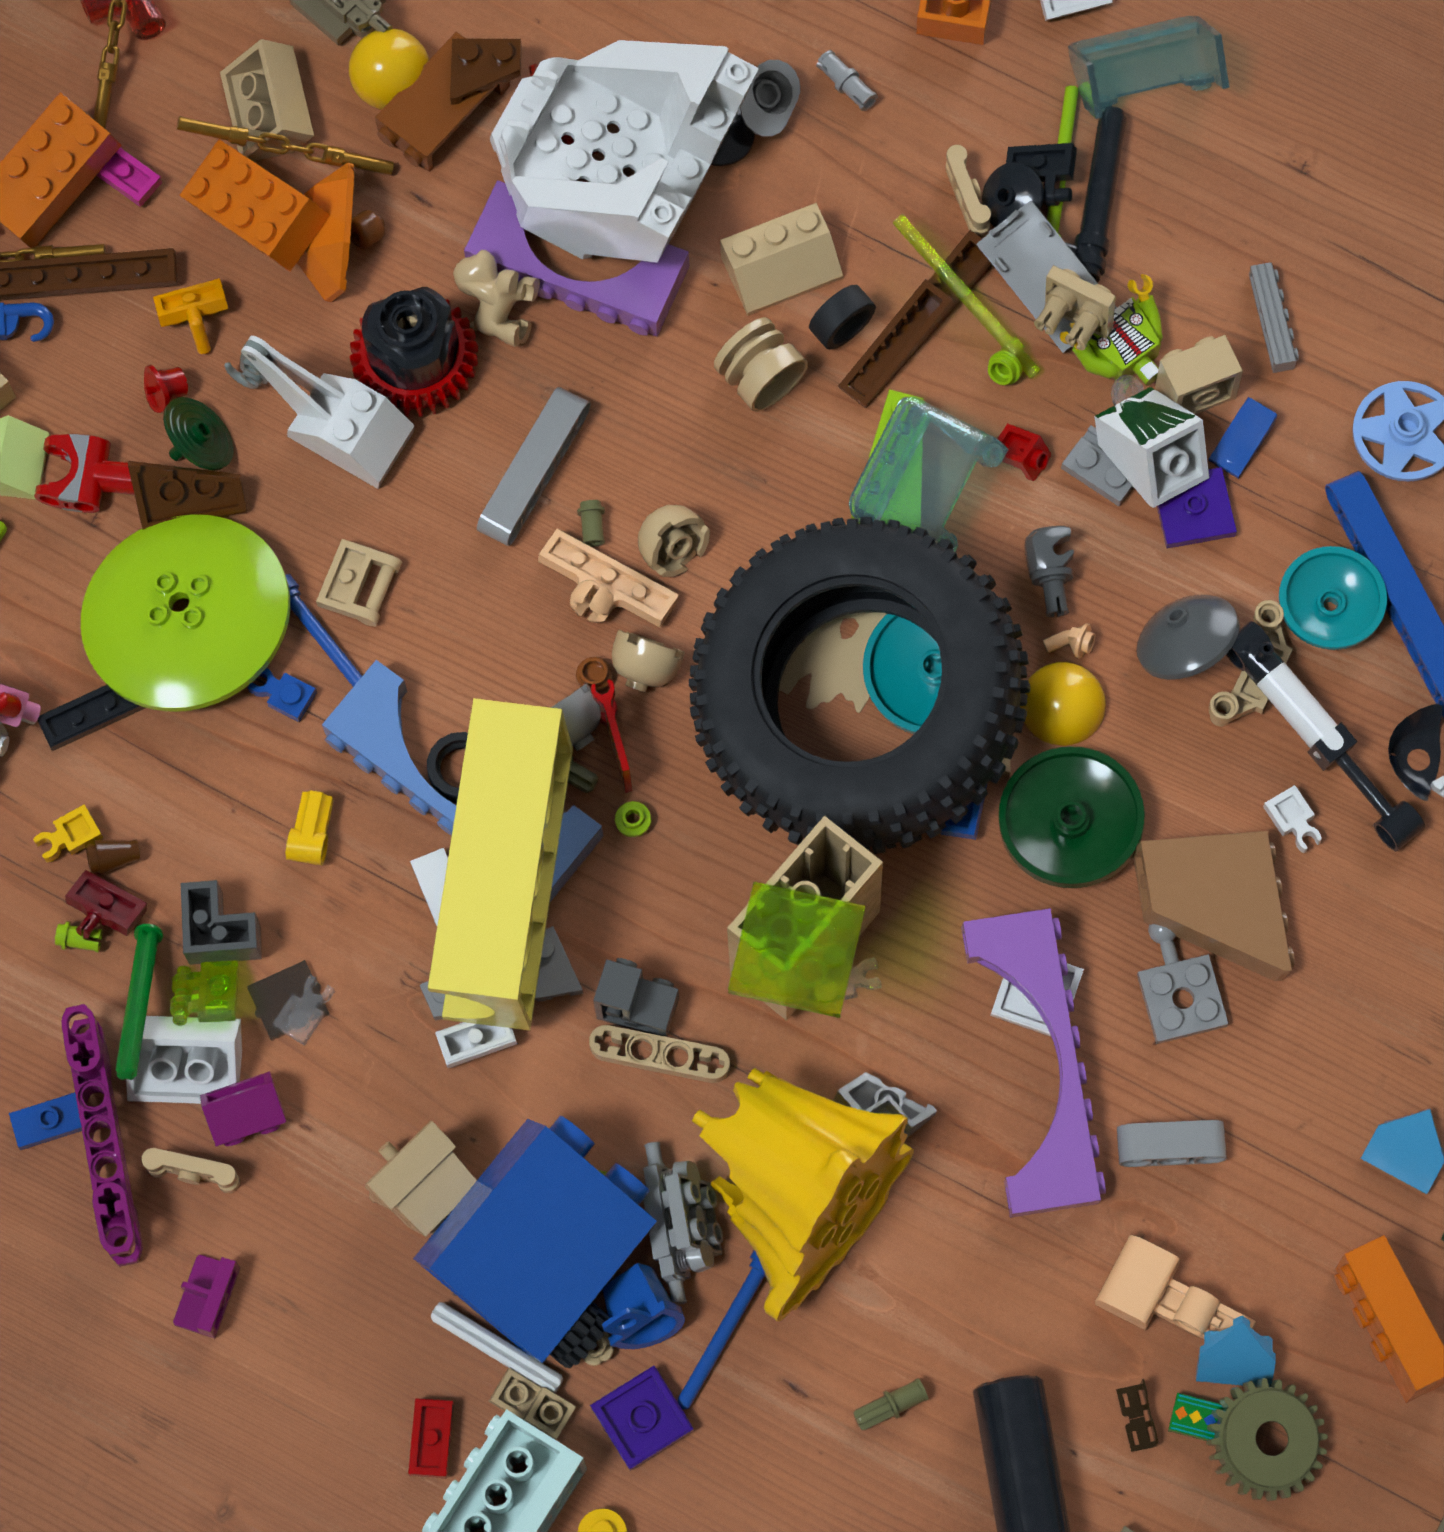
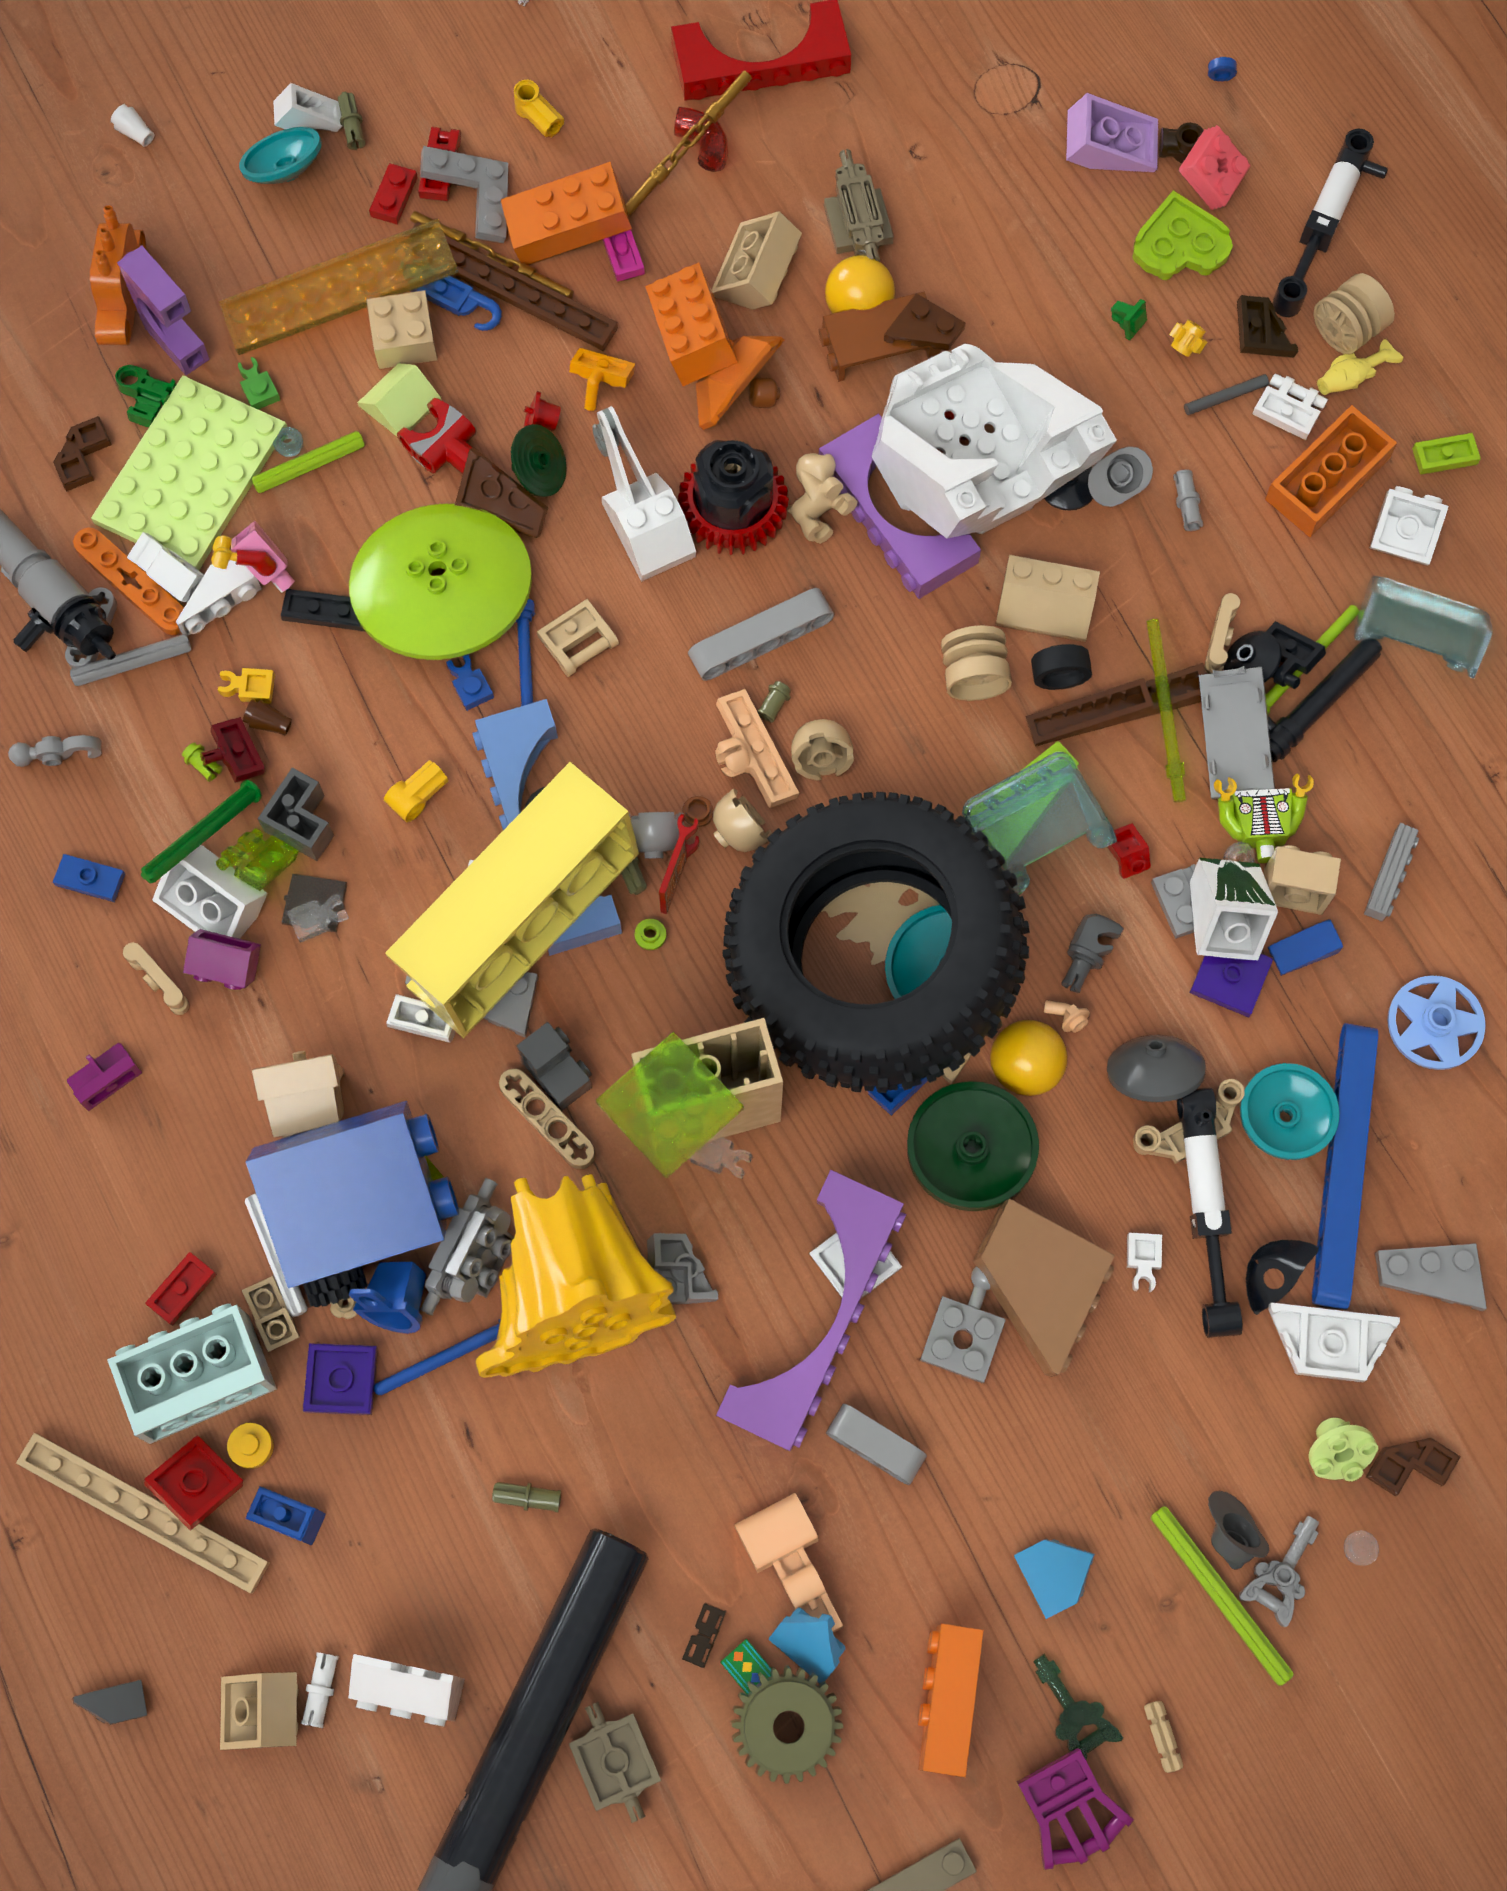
camera: 30 degrees right, 0 degrees up
(114, 1192) = (82, 963): magenta piece -> none
(331, 156) = (774, 324): pearl gold piece -> none
(998, 371) = (1158, 781): lime plate -> none
(1078, 301) = (1247, 767): tan plate -> none

